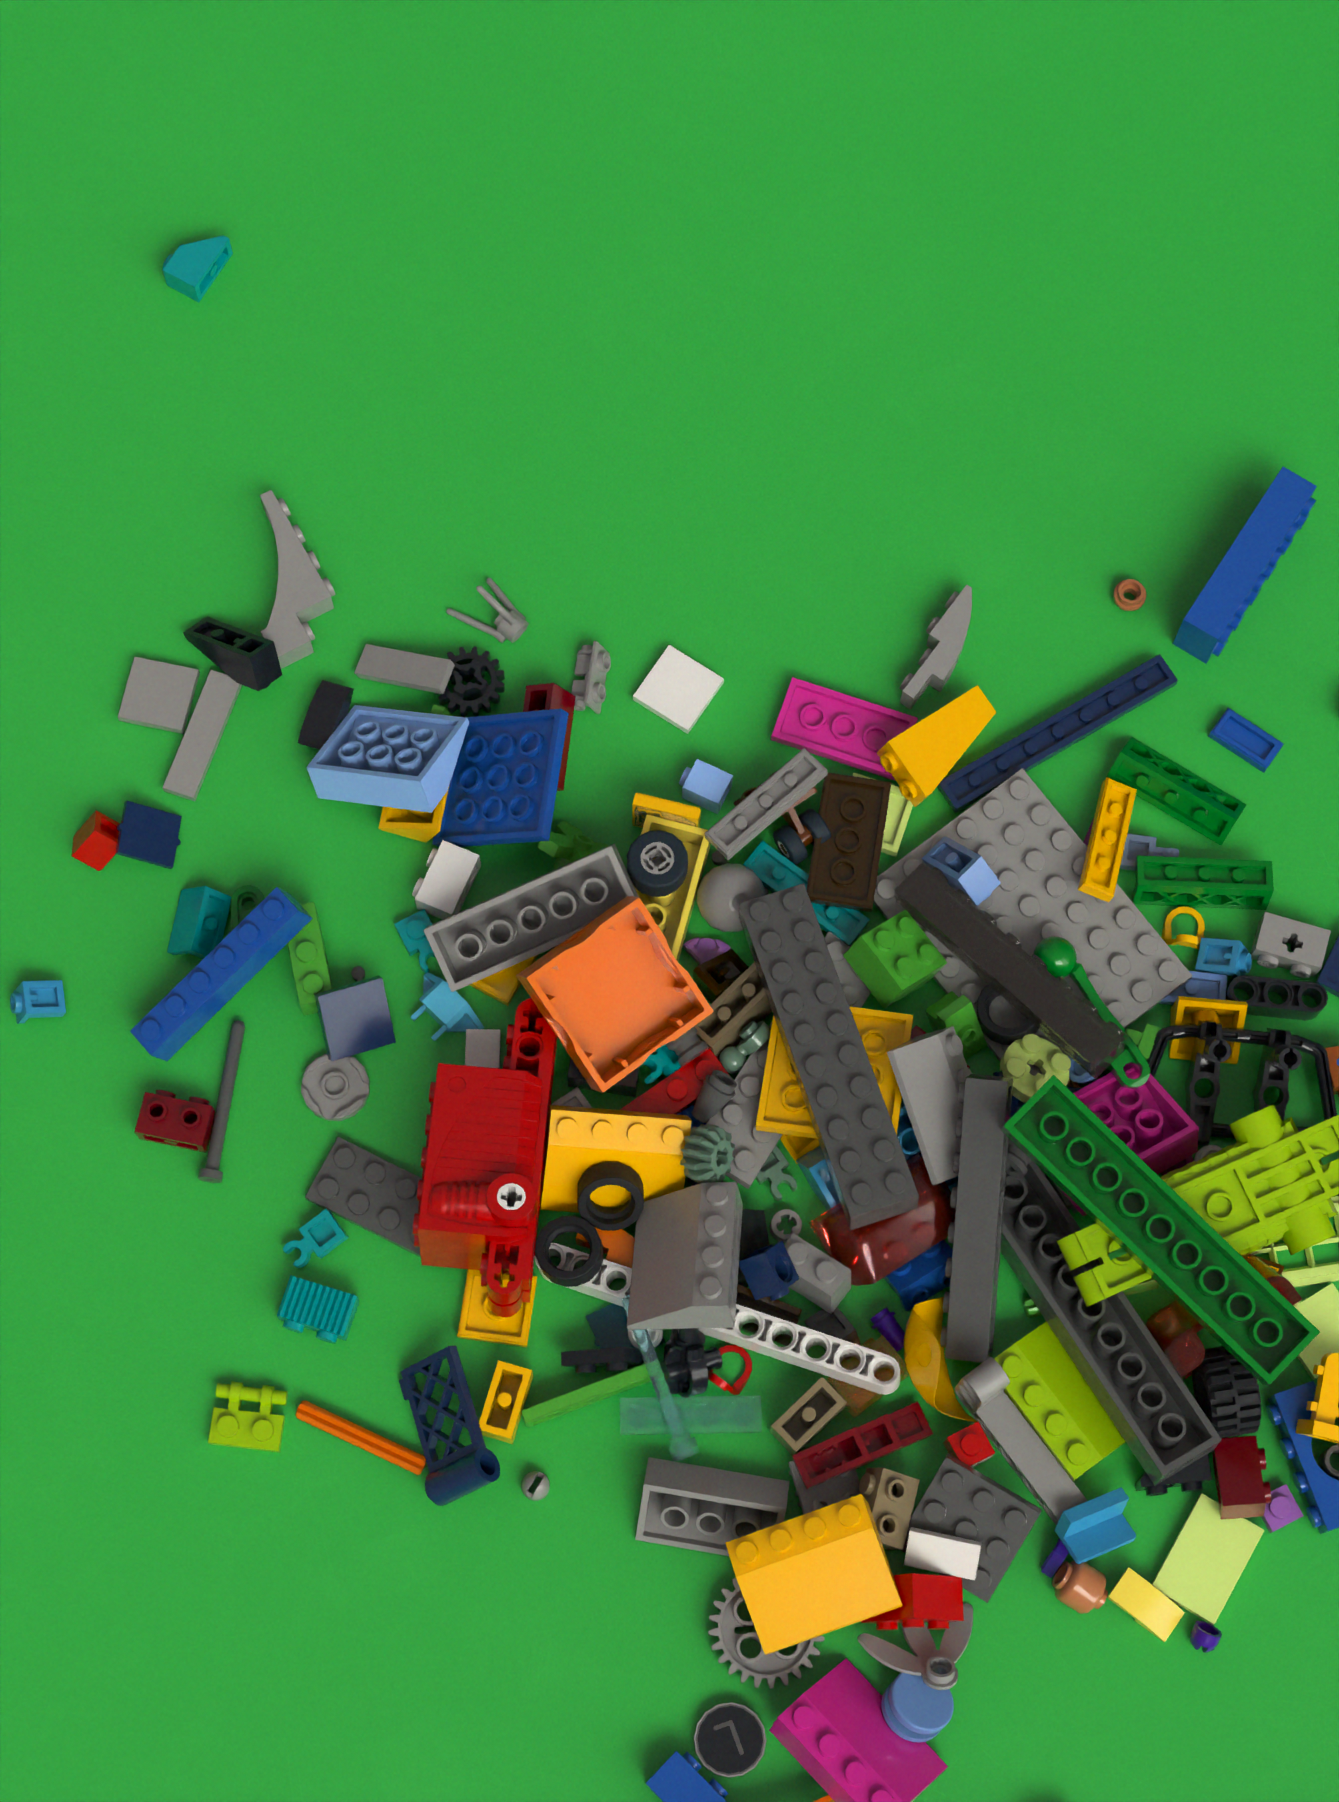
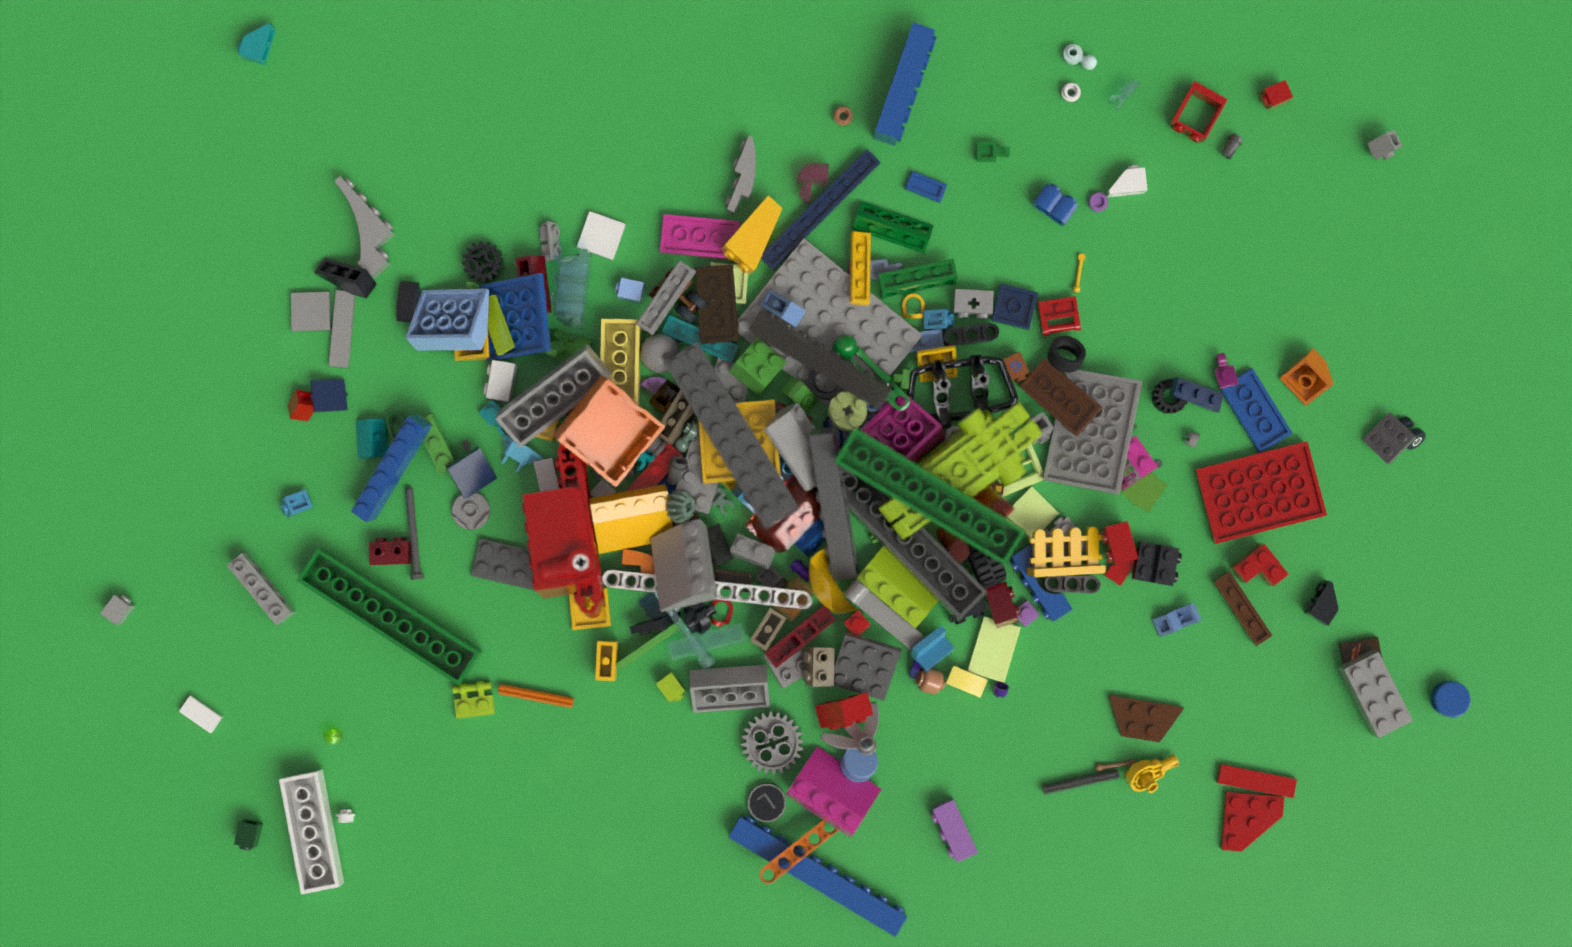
camera: 10 degrees left, 15 degrees up
(145, 1230) = (389, 616): none -> green brick
(317, 1309) = (494, 634): teal brick -> none
(320, 1236) = (485, 595): teal plate -> none
(404, 668) = (444, 264): light grey tile -> none
(467, 789) = (498, 327): none -> lime tile
(470, 1465) = (596, 700): dark blue piece -> none
(510, 621) = (496, 220): light grey plant -> none
(542, 1489) = (638, 698): light grey hinge -> none
(557, 1227) = (634, 574): black tyre -> none
(607, 759) = (571, 289): none -> clear light blue windscreen
(608, 1481) = (671, 687): none -> lime brick
(610, 1217) = (638, 549): black tyre -> none
(655, 876) = (617, 353): black wheel -> none
(665, 809) = (597, 315): yellow tile -> none
(769, 1271) = (729, 559): dark blue brick -> none
(776, 1220) = (727, 525): light grey bush -> none
(814, 1574) = (789, 712): yellow slope -> none
(942, 1553) = (854, 683): white tile -> none
(1056, 674) = (812, 175): none -> clear pink brick

